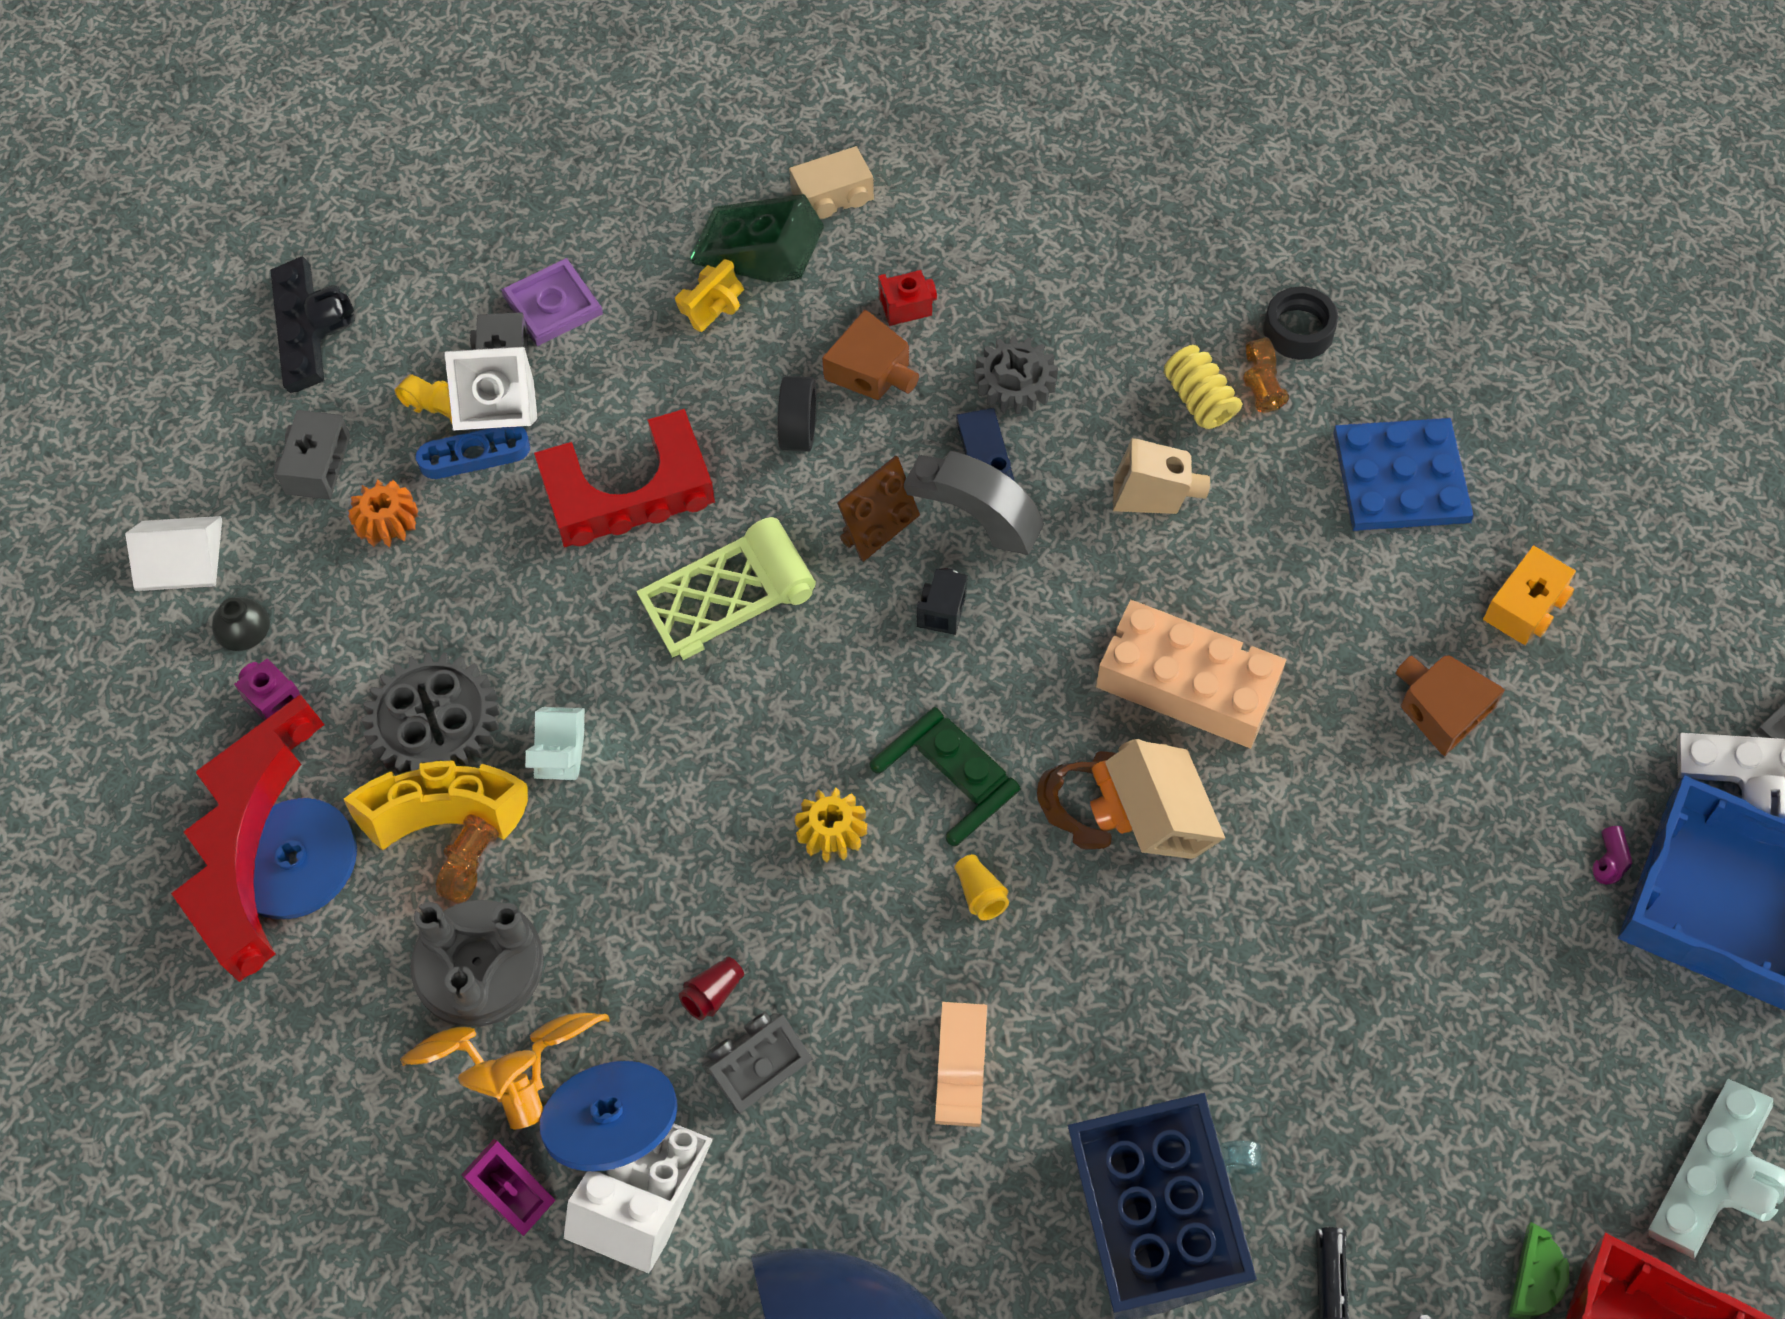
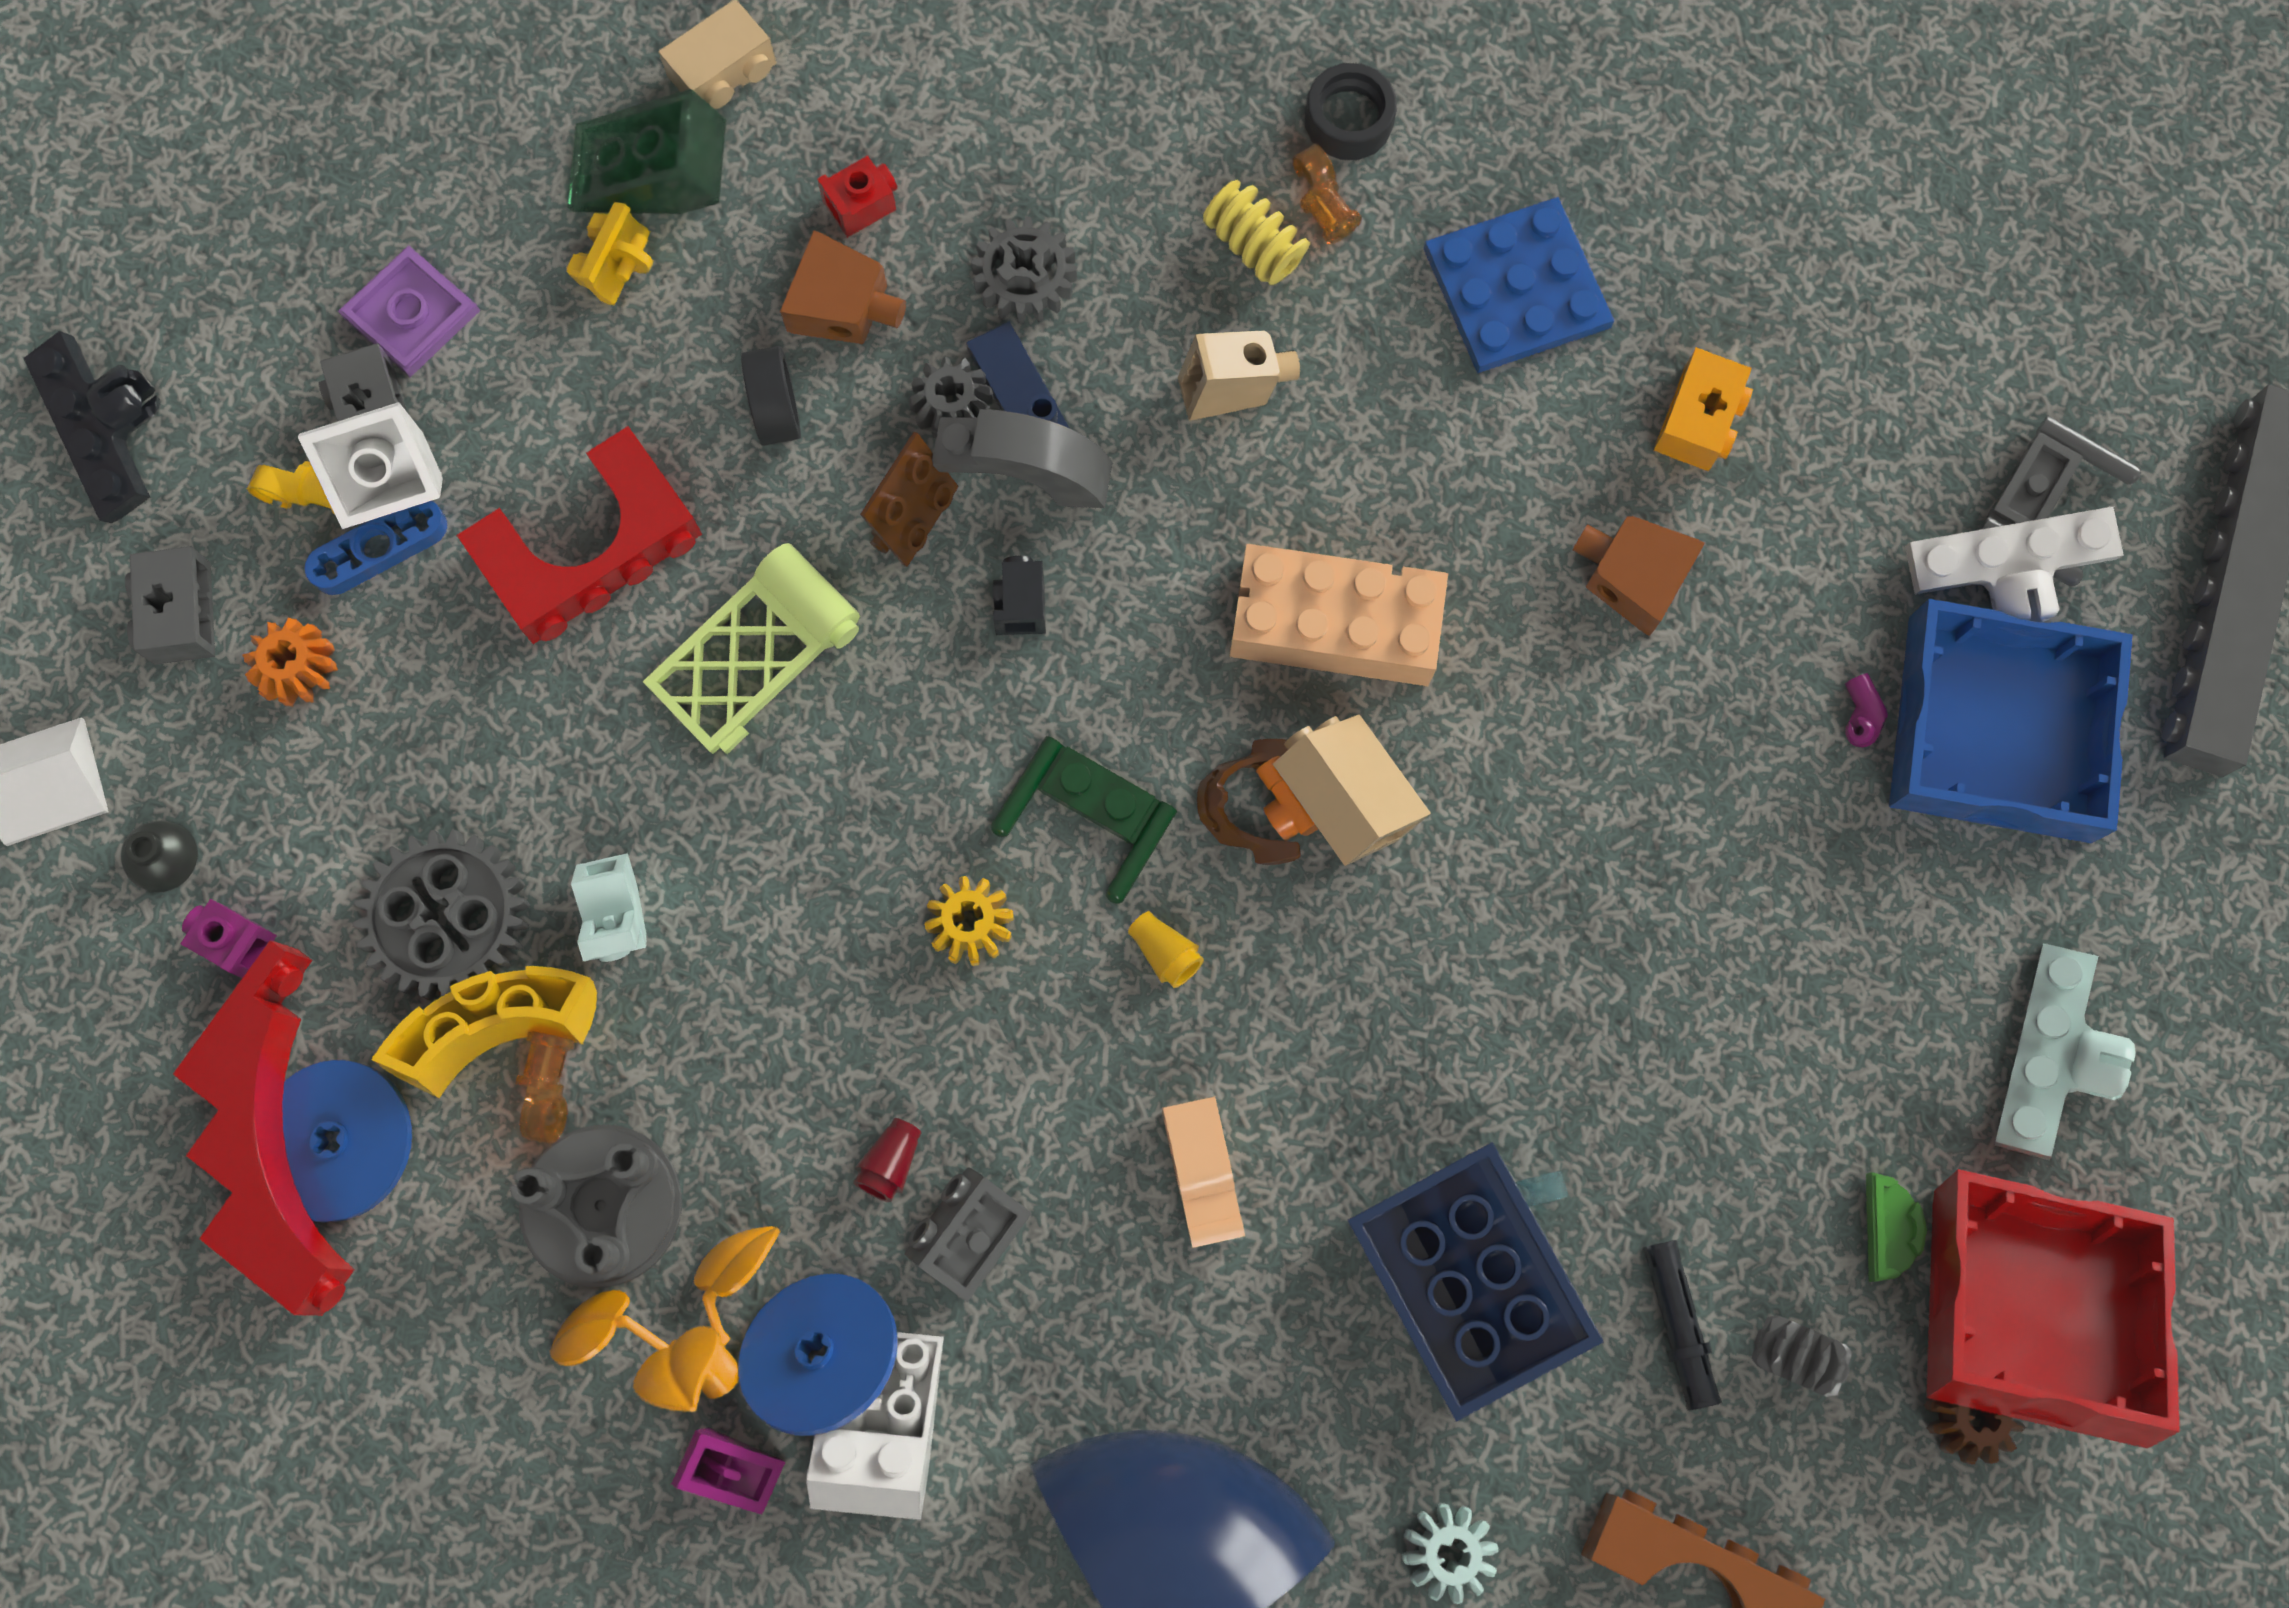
camera: 20 degrees left, 15 degrees up
(930, 440) = (931, 391): none -> dark grey gear

